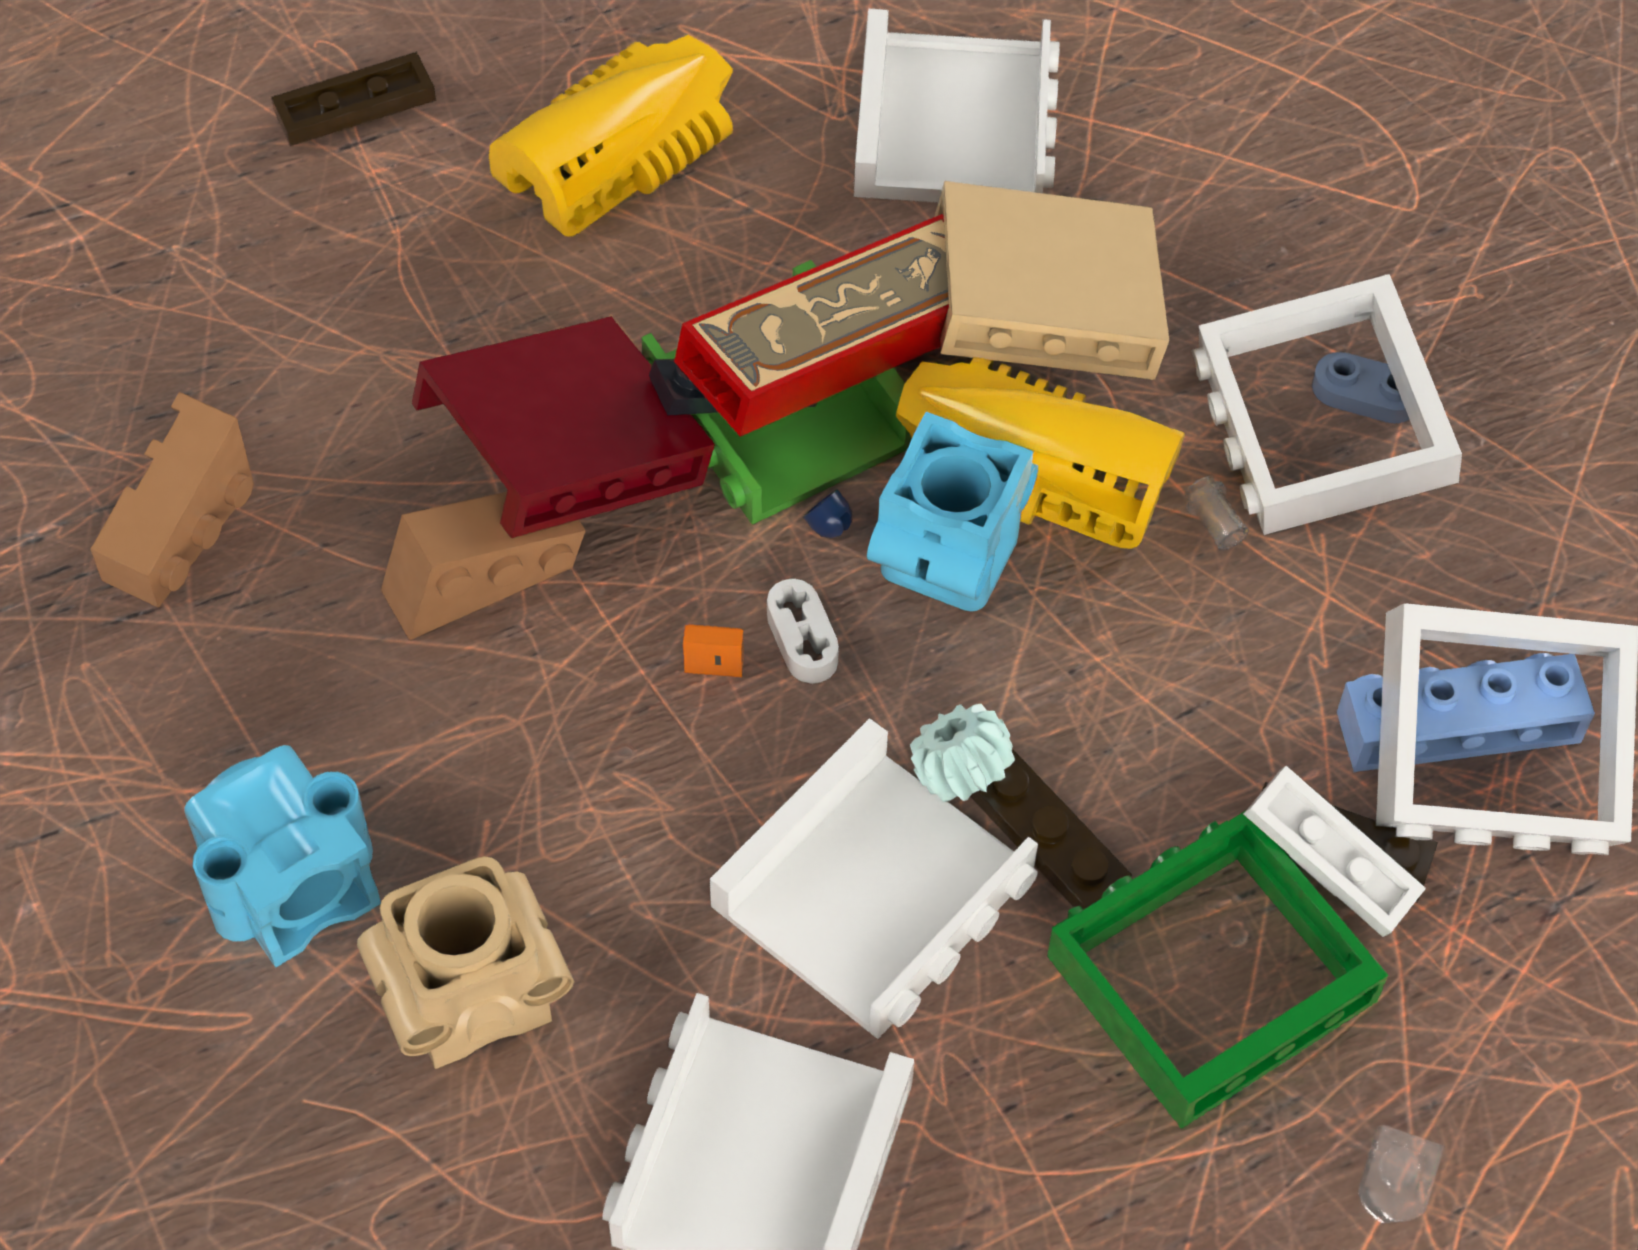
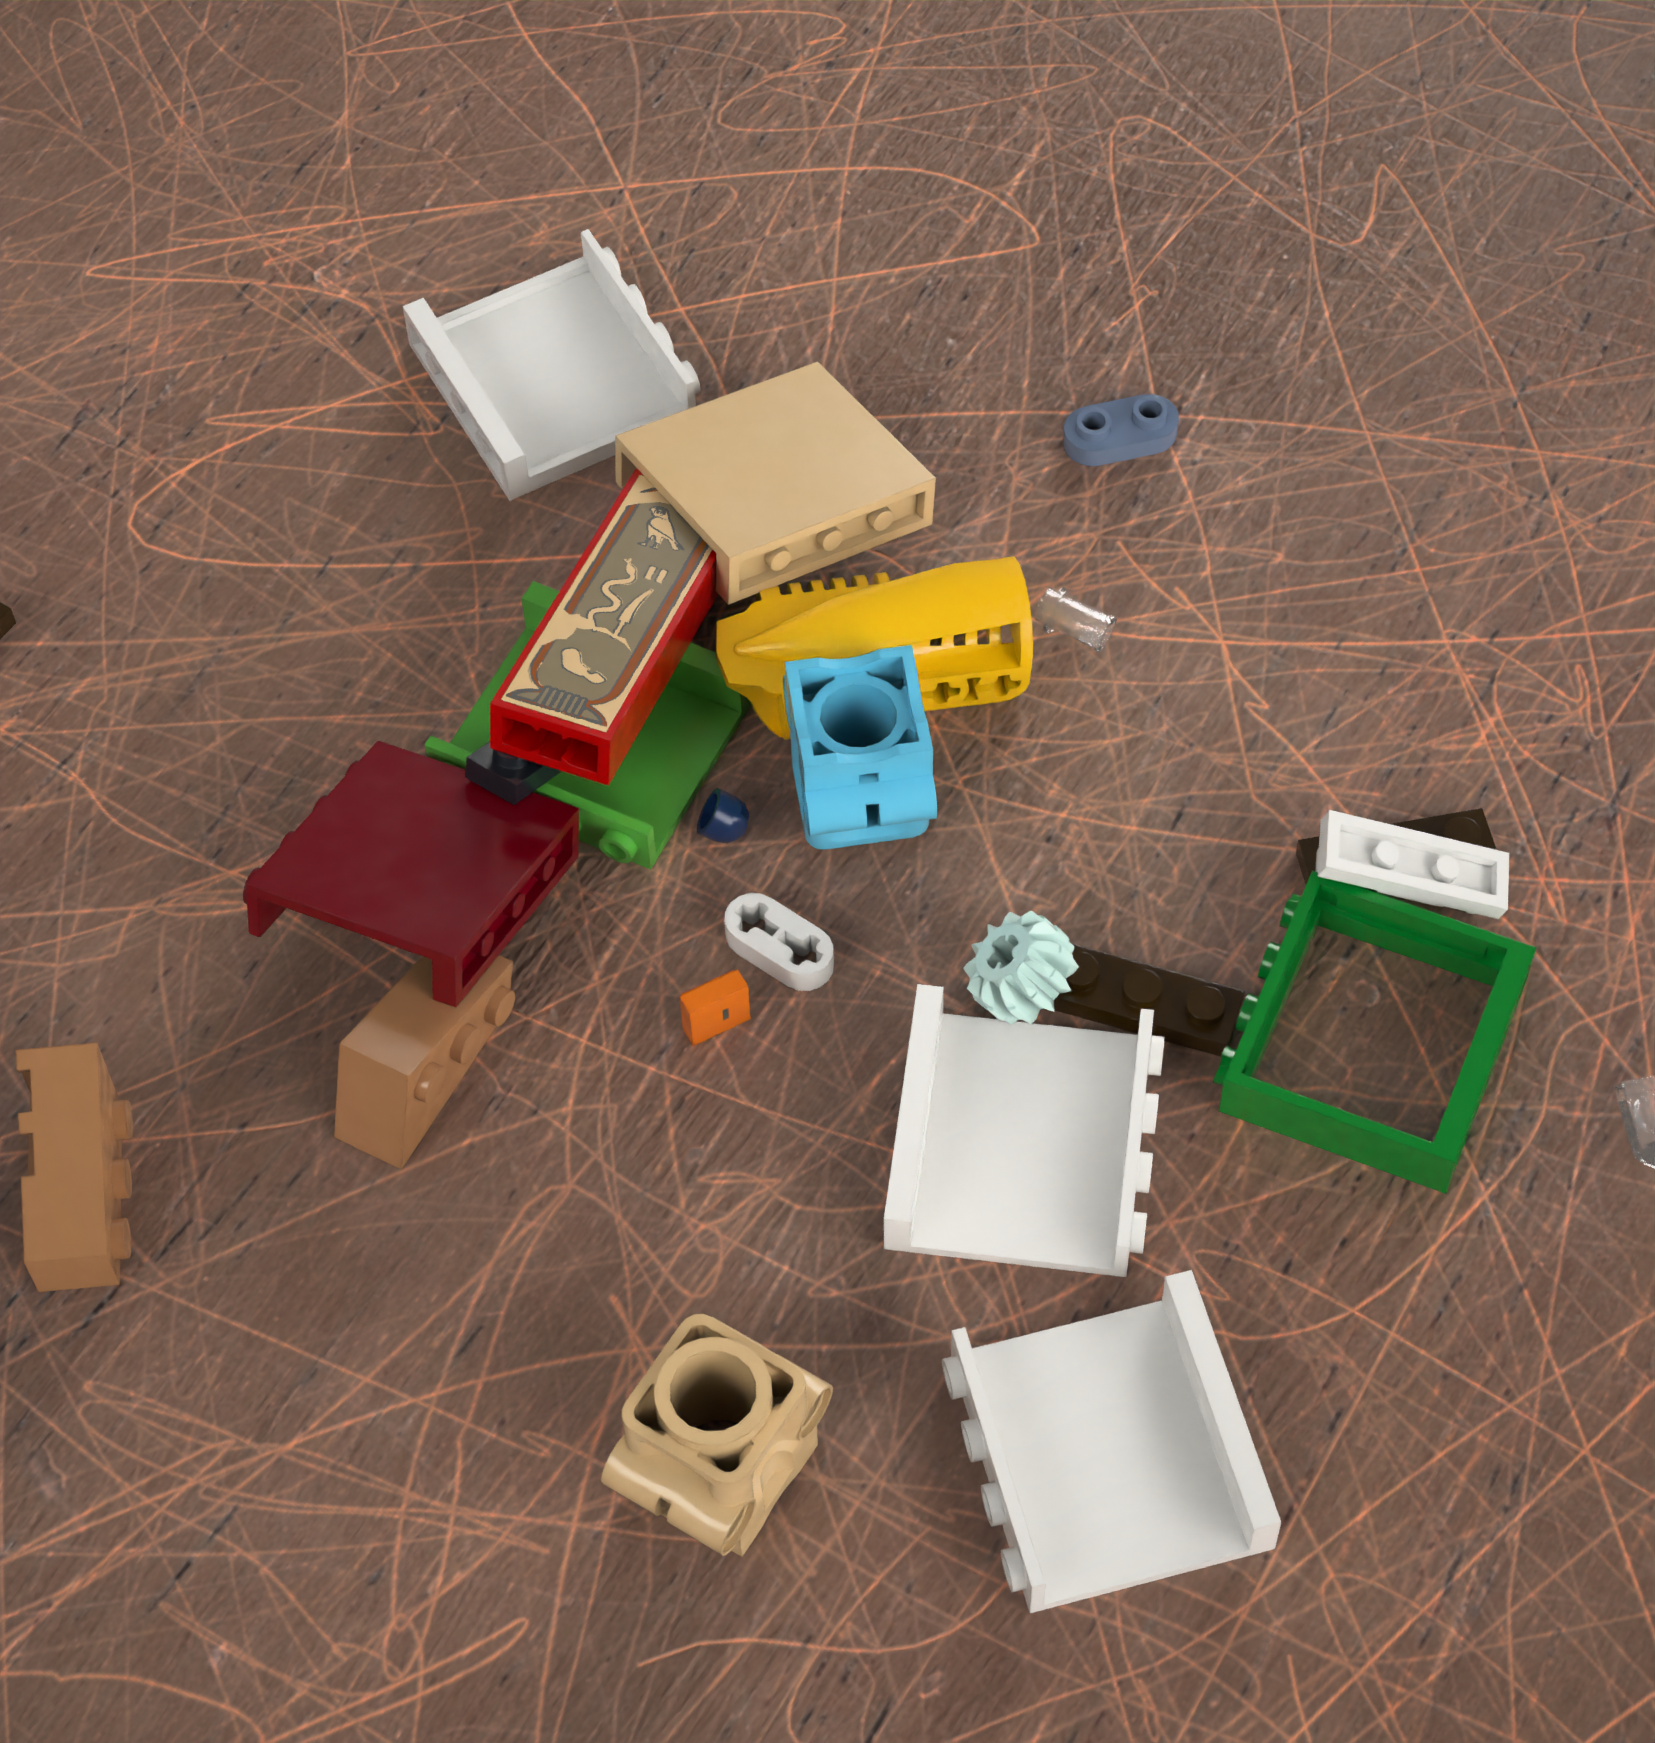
camera: 30 degrees left, 0 degrees up
(281, 852) = (454, 1439): medium azure piece -> none
(643, 113) = (235, 521): yellow connector -> none
(1350, 489) = (1161, 392): white window -> none
(1475, 710) = (1420, 678): light blue brick -> none
(1613, 642) = (1393, 713): white window -> none

